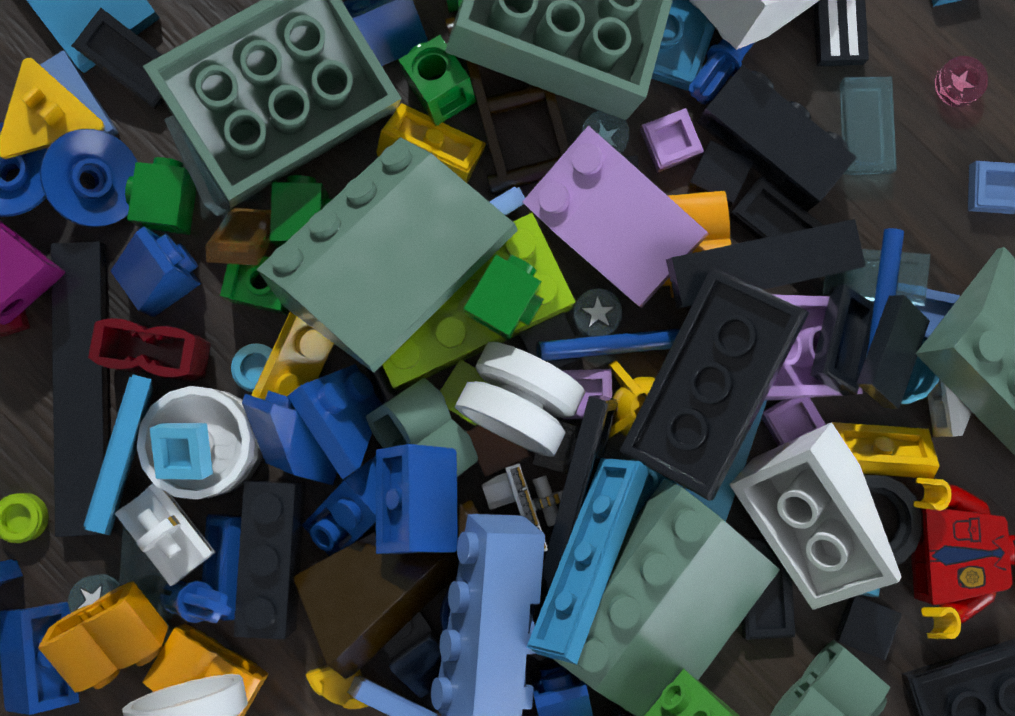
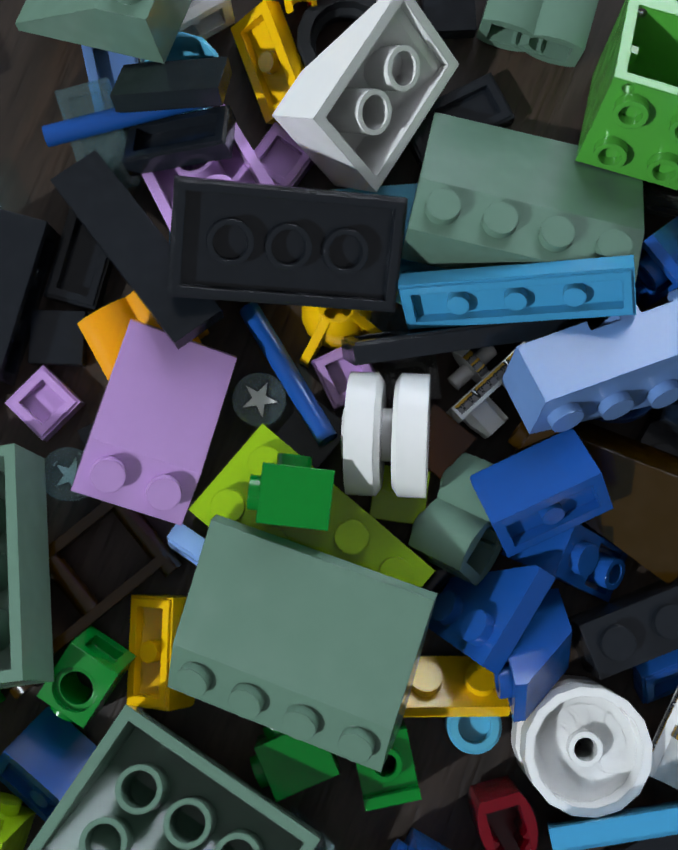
camera: 115 degrees left, 0 degrees up
(181, 451) = (605, 760): medium azure plate -> none
(240, 237) = (351, 807): clear orange tile -> none

